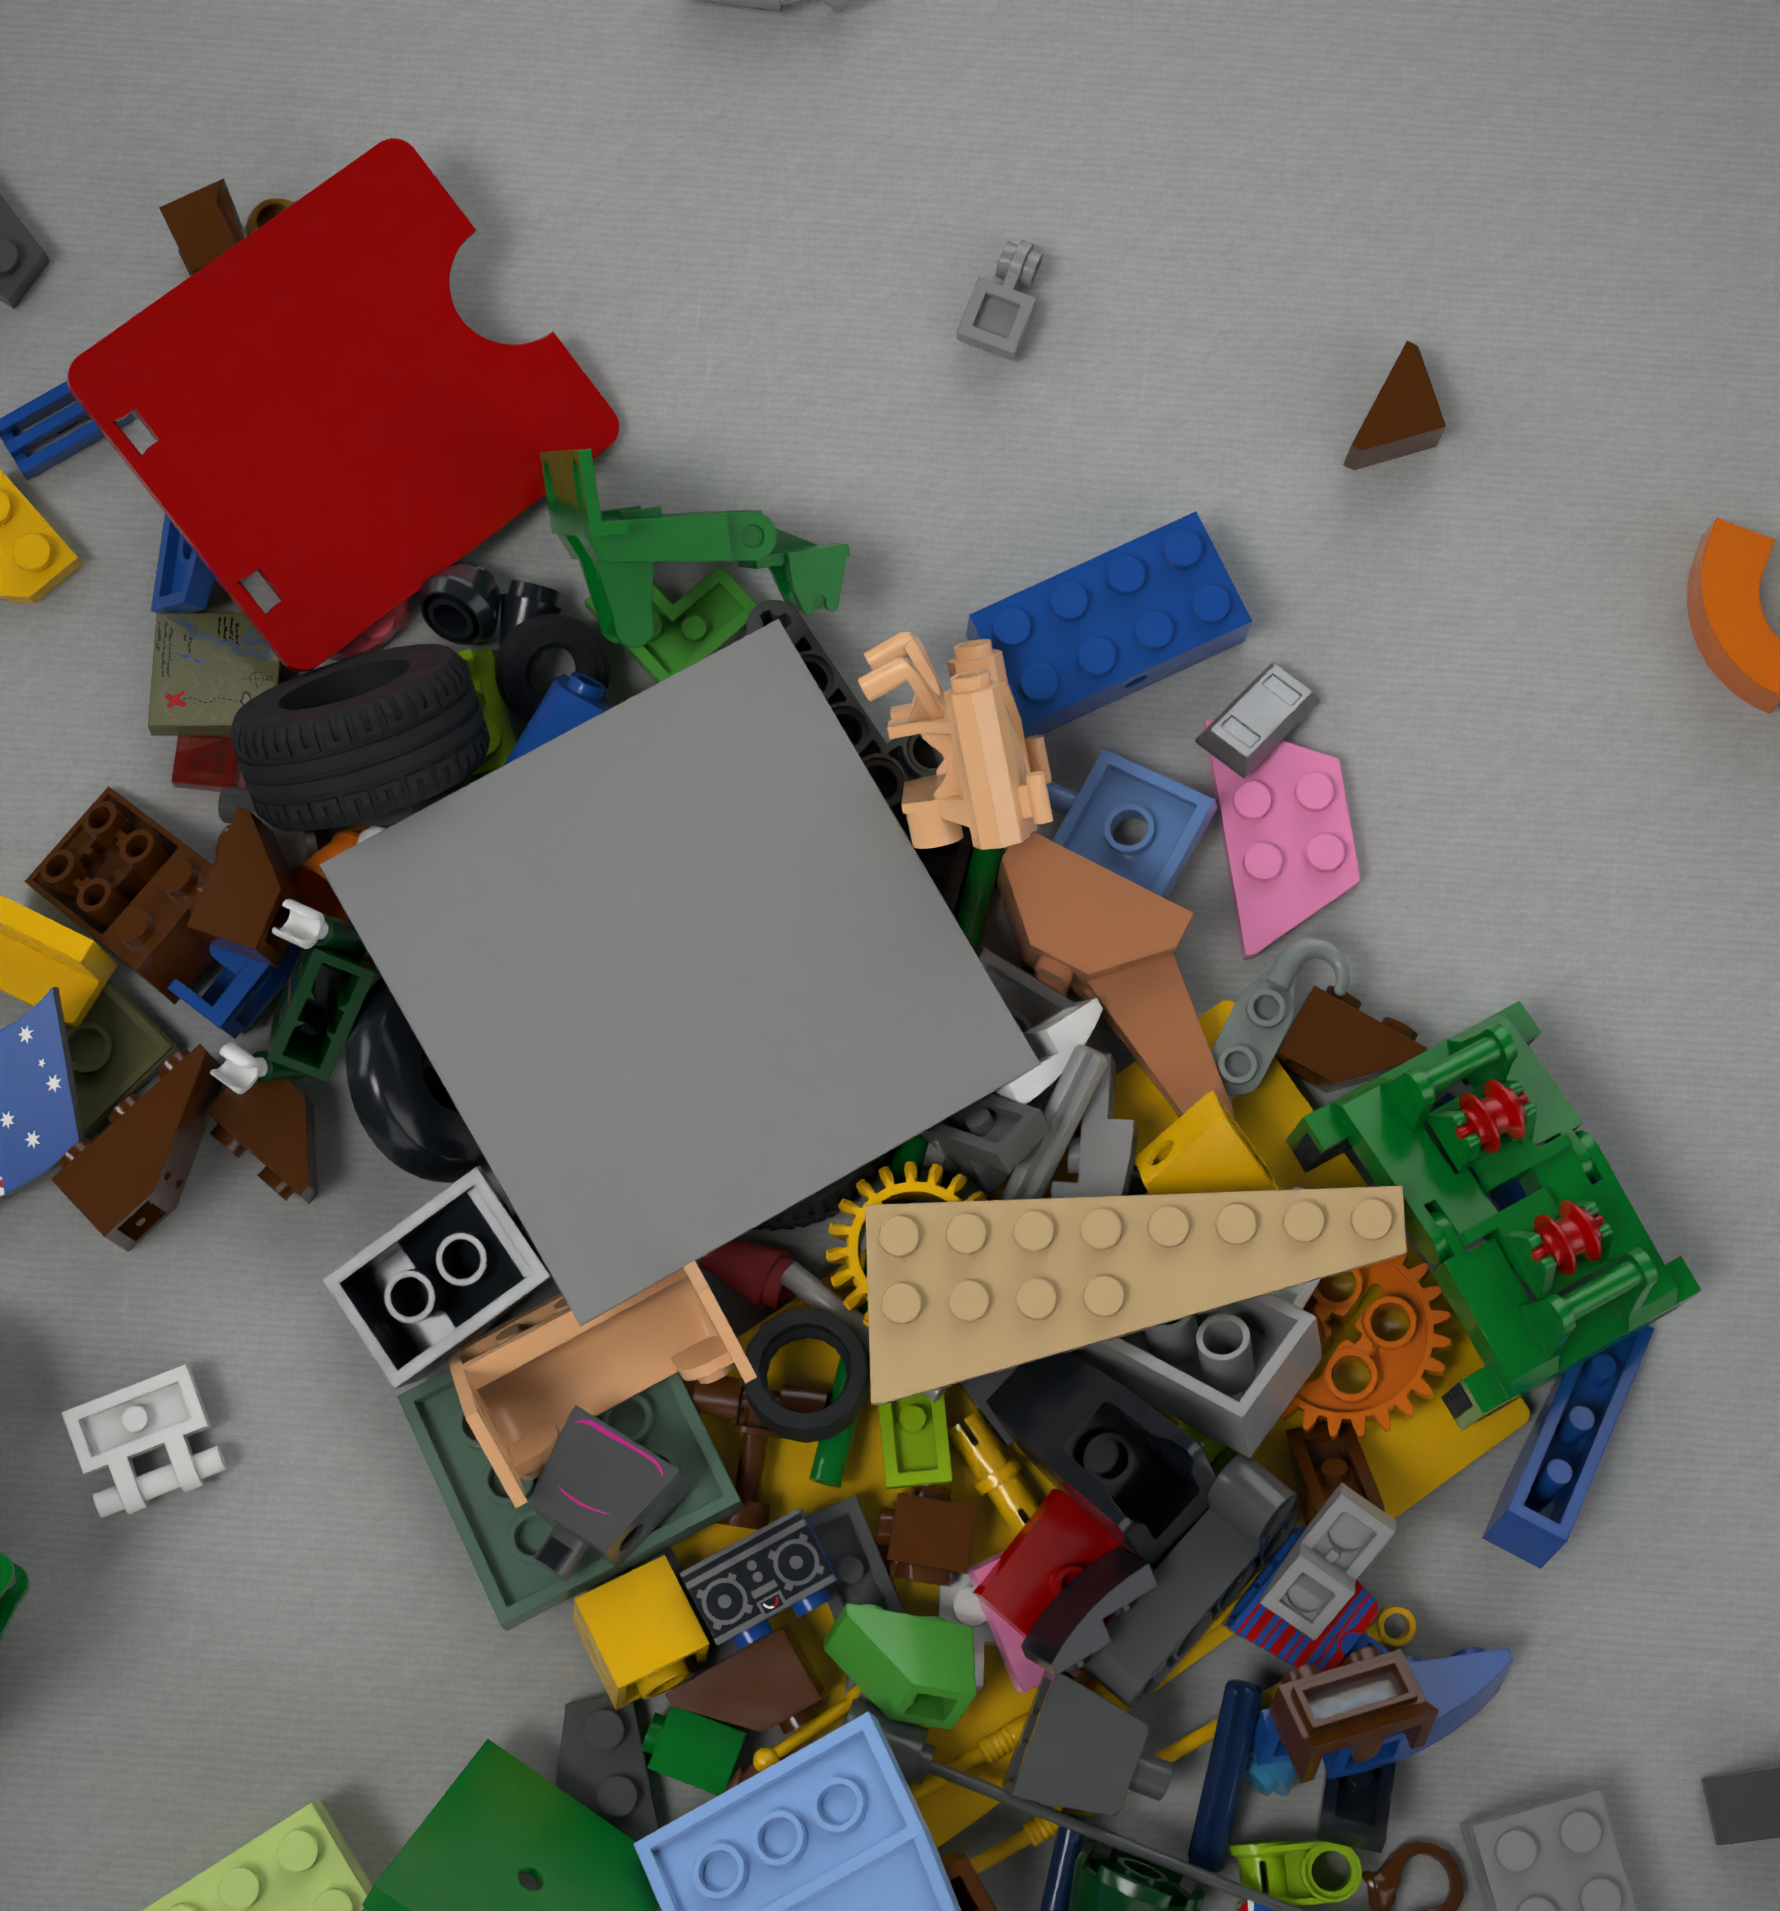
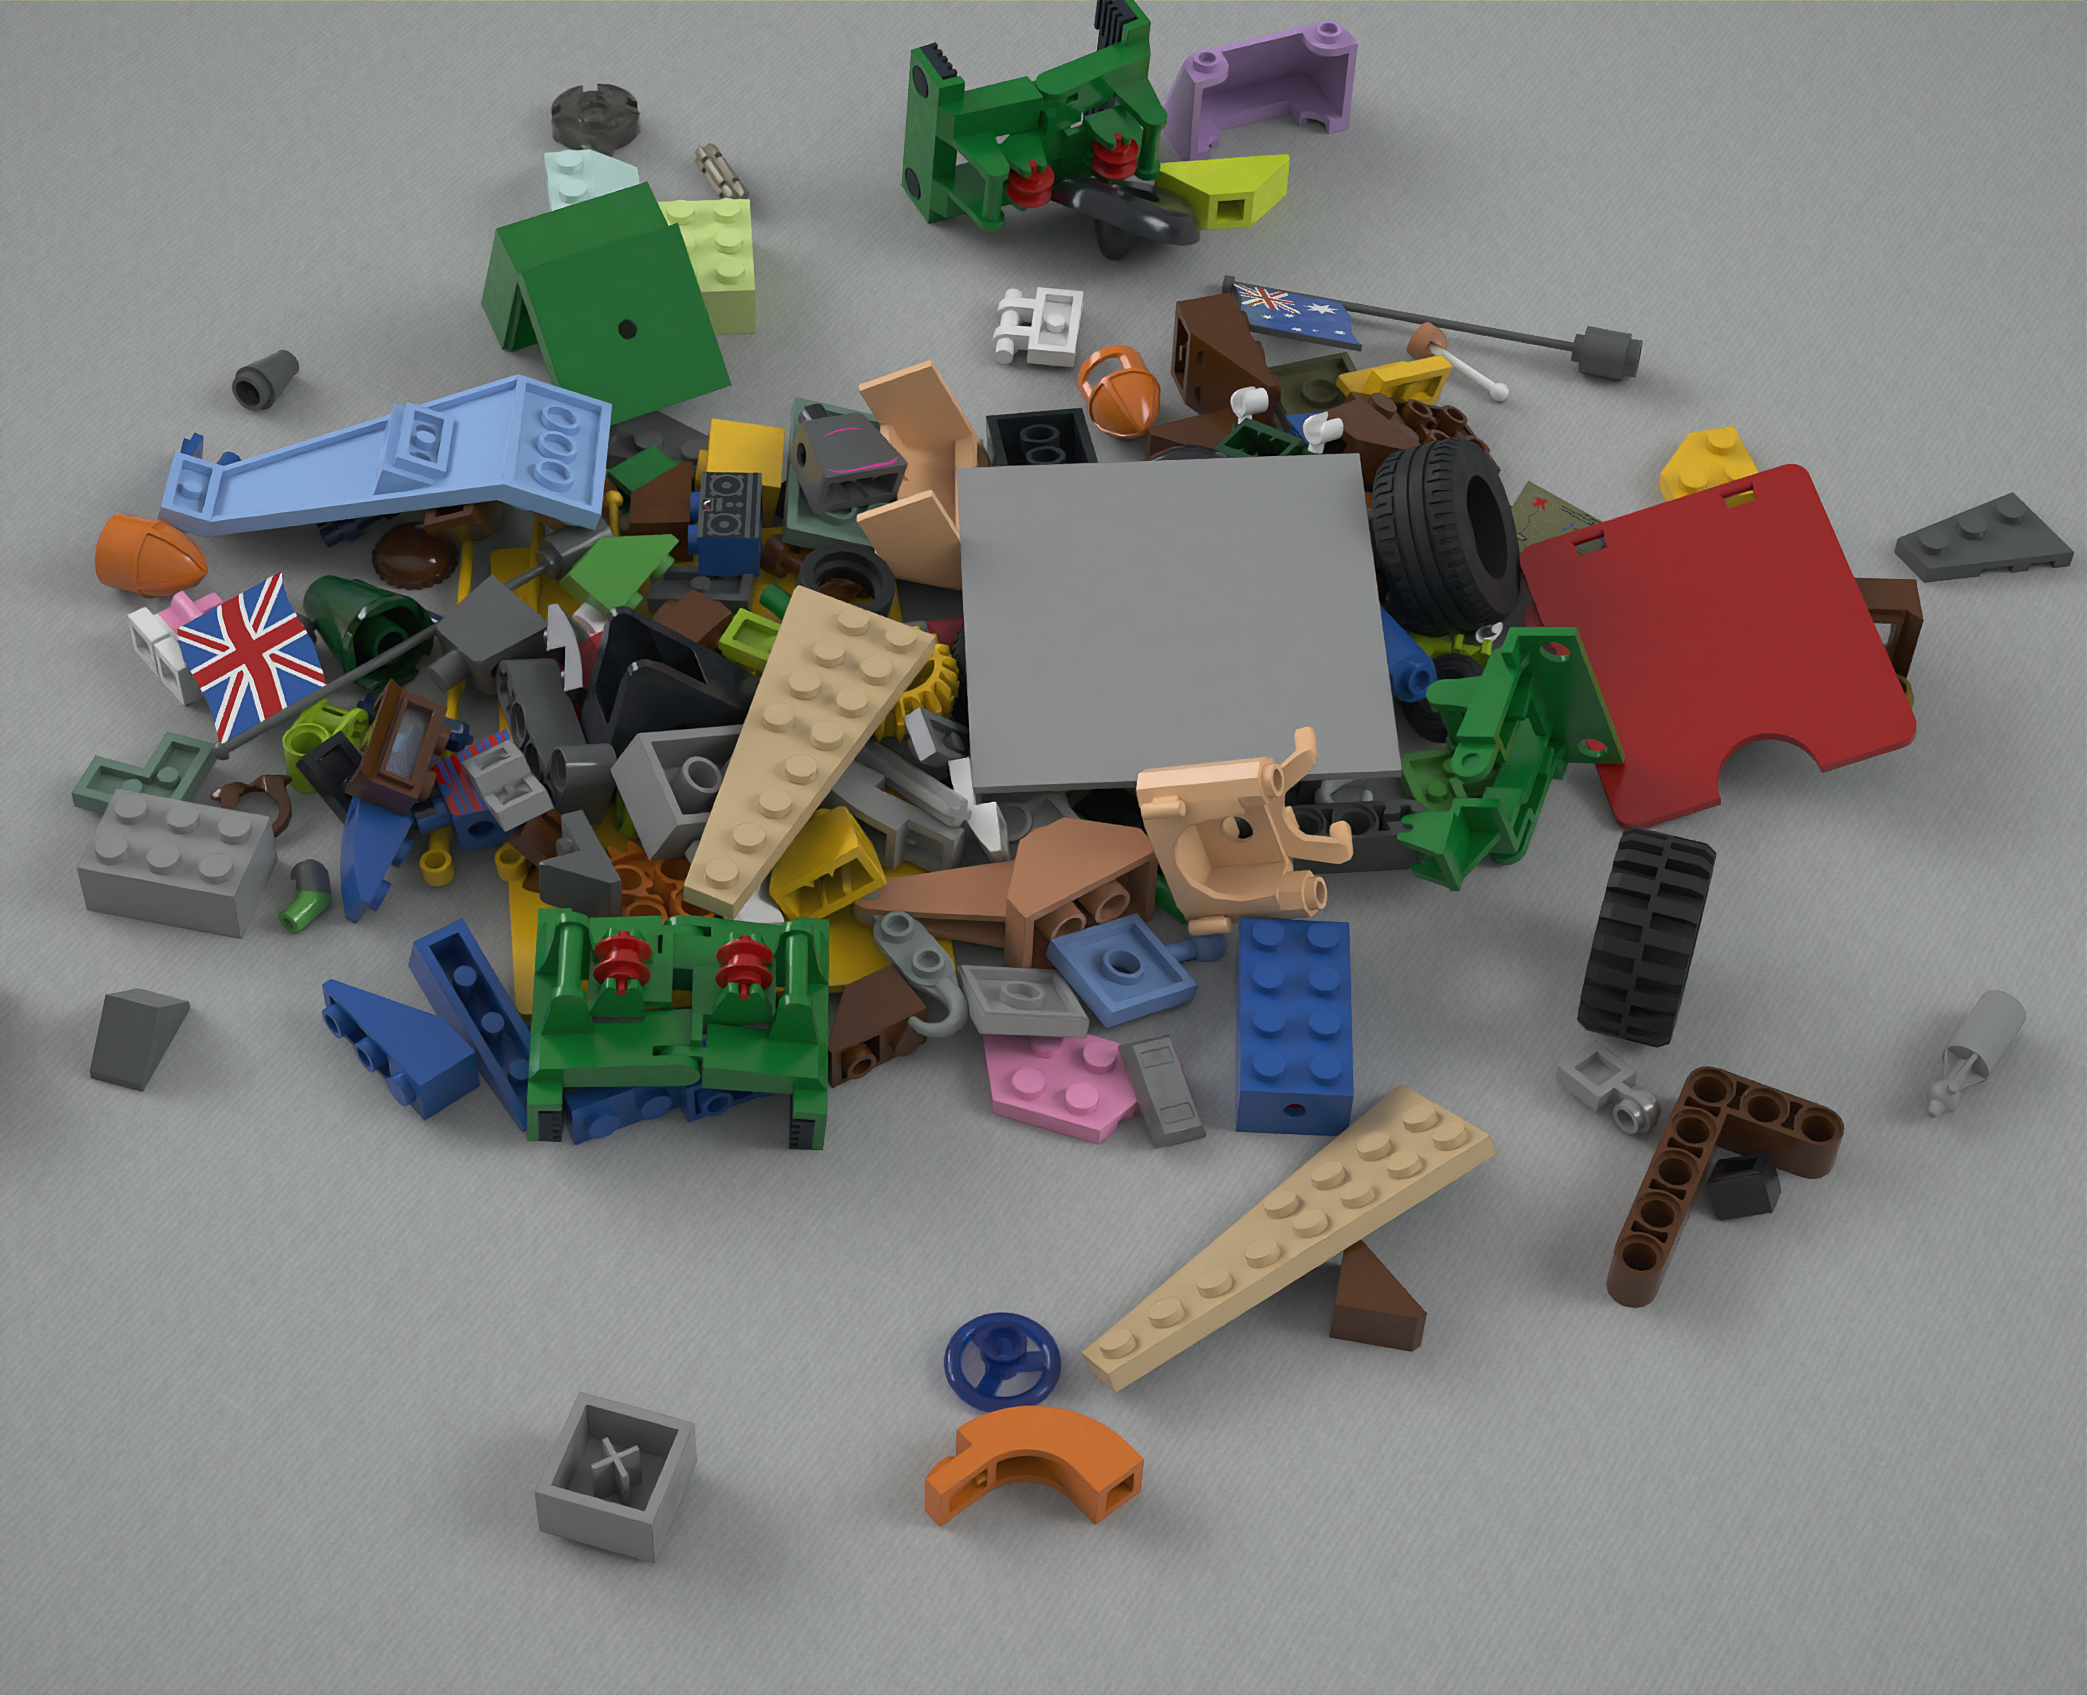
camera: 120 degrees right, 30 degrees down
(248, 1257) = (1124, 400): none -> orange helmet
(858, 292) = (1646, 936): none -> black tyre
(1051, 136) = (1744, 1186): none -> black slope
(1069, 179) = (1712, 1113): none -> reddish brown beam
(1247, 901) = (1021, 1001): none -> light grey plate
(1321, 490) = (1343, 1193): none -> tan wing
(1405, 1393) = (581, 872): none -> dark grey slope
(1496, 1742) = (313, 895): none -> arm
(1644, 1494) = (409, 1047): none -> blue slope
(1661, 701) = (1003, 1335): none -> clear blue piece

